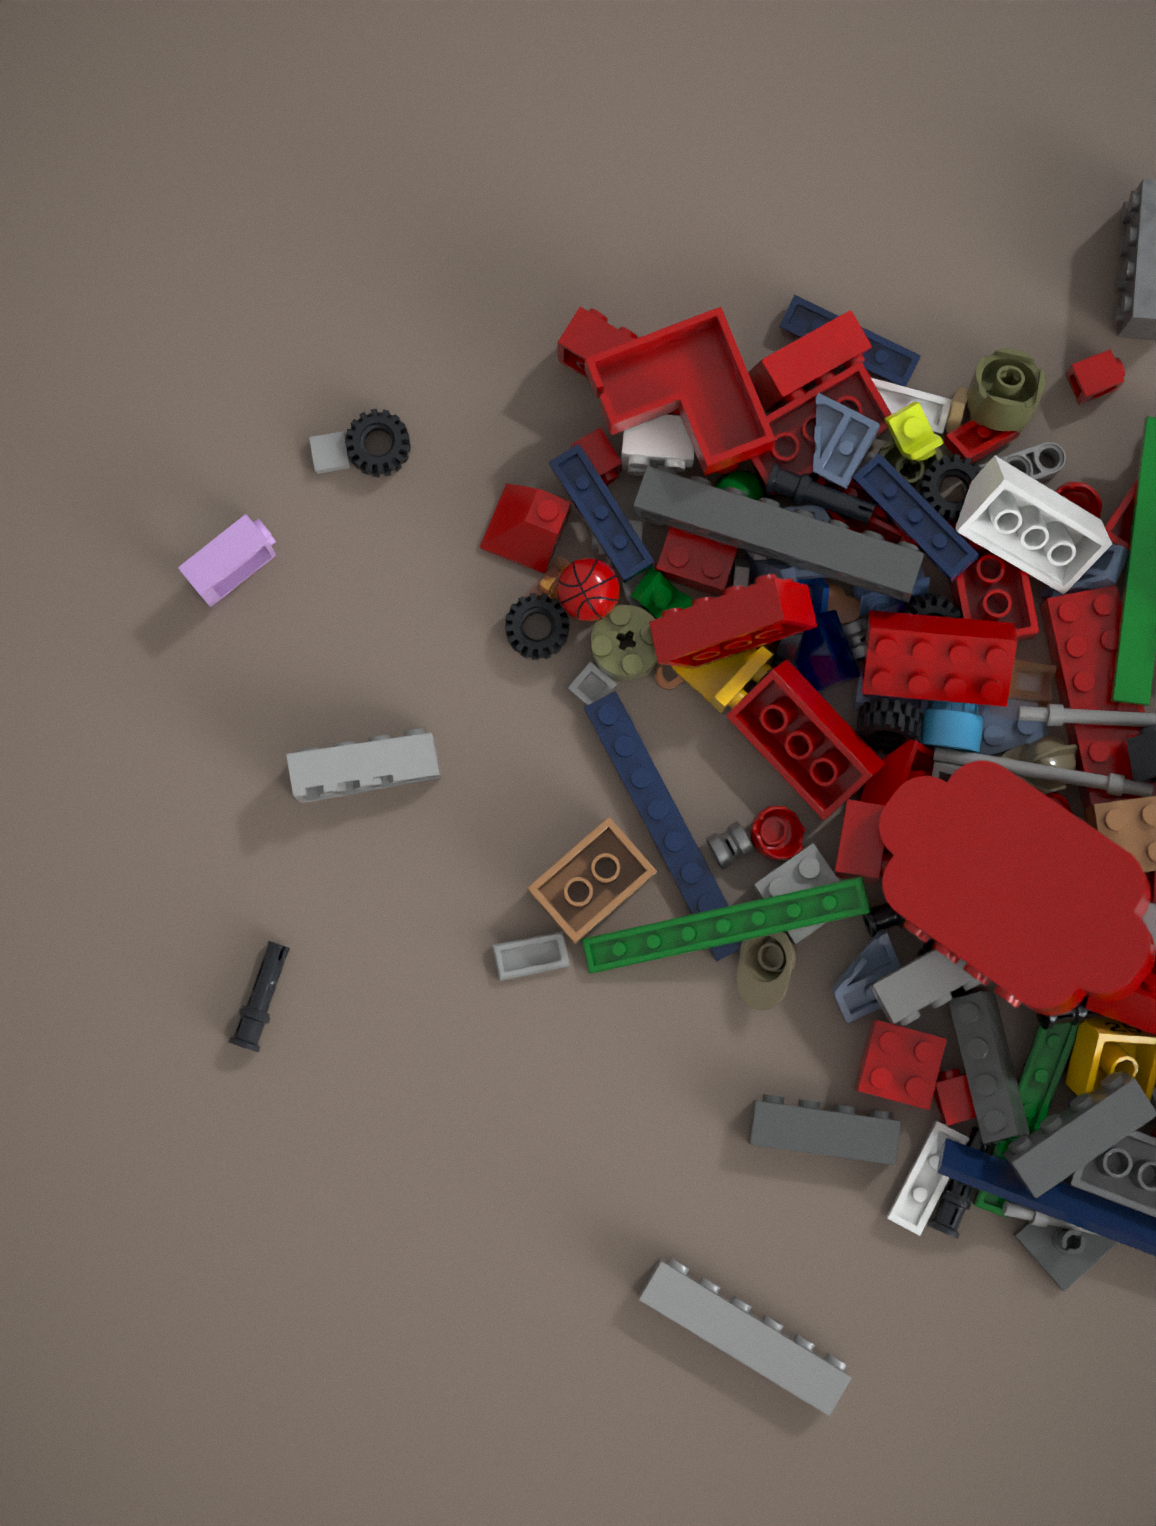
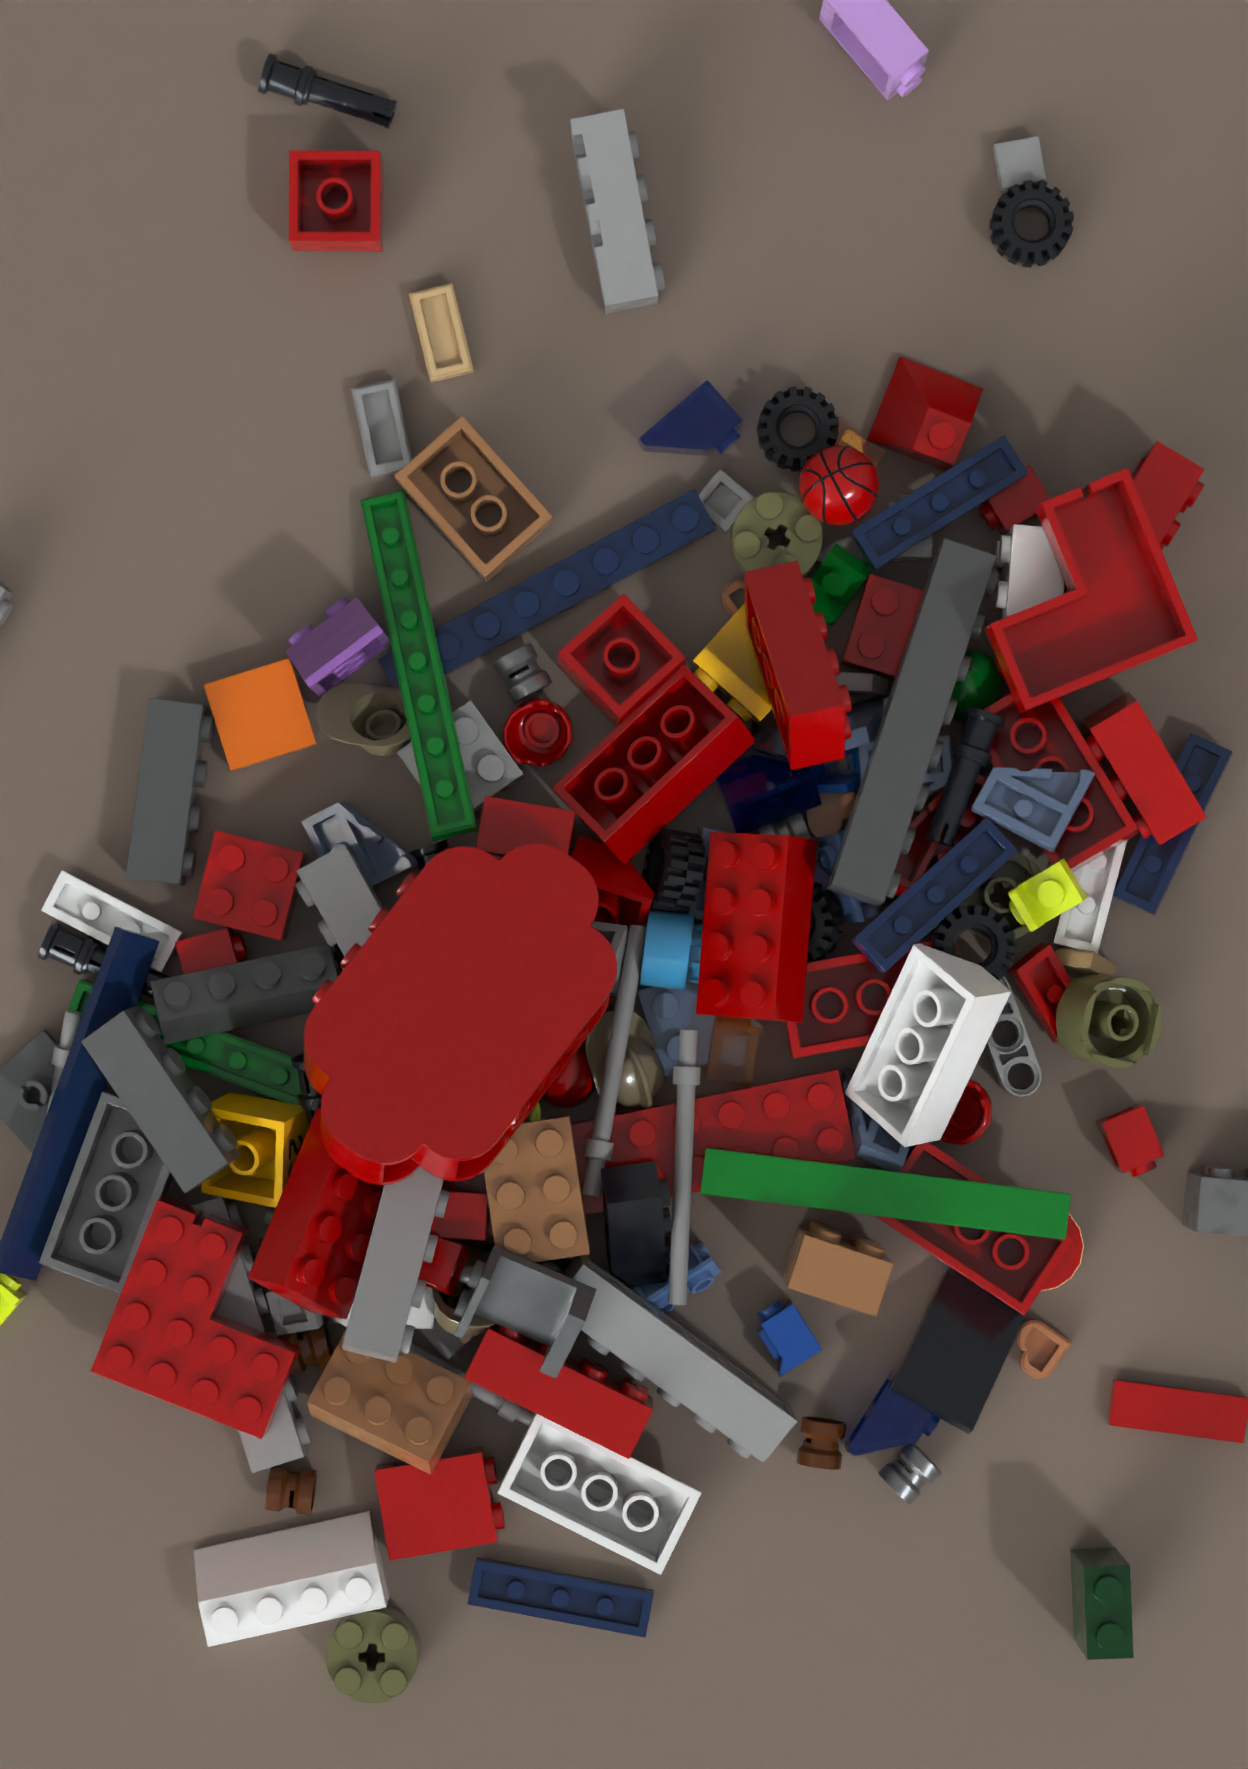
camera: 90 degrees right, 5 degrees up
(349, 988) = (336, 200): none -> red brick
(454, 908) = (441, 332): none -> tan tile
(533, 705) = (695, 426): none -> clear blue slope
(709, 992) = (336, 646): none -> medium lavender slope
(722, 765) = (619, 659): none -> red brick
(761, 1056) = (260, 714): none -> orange tile

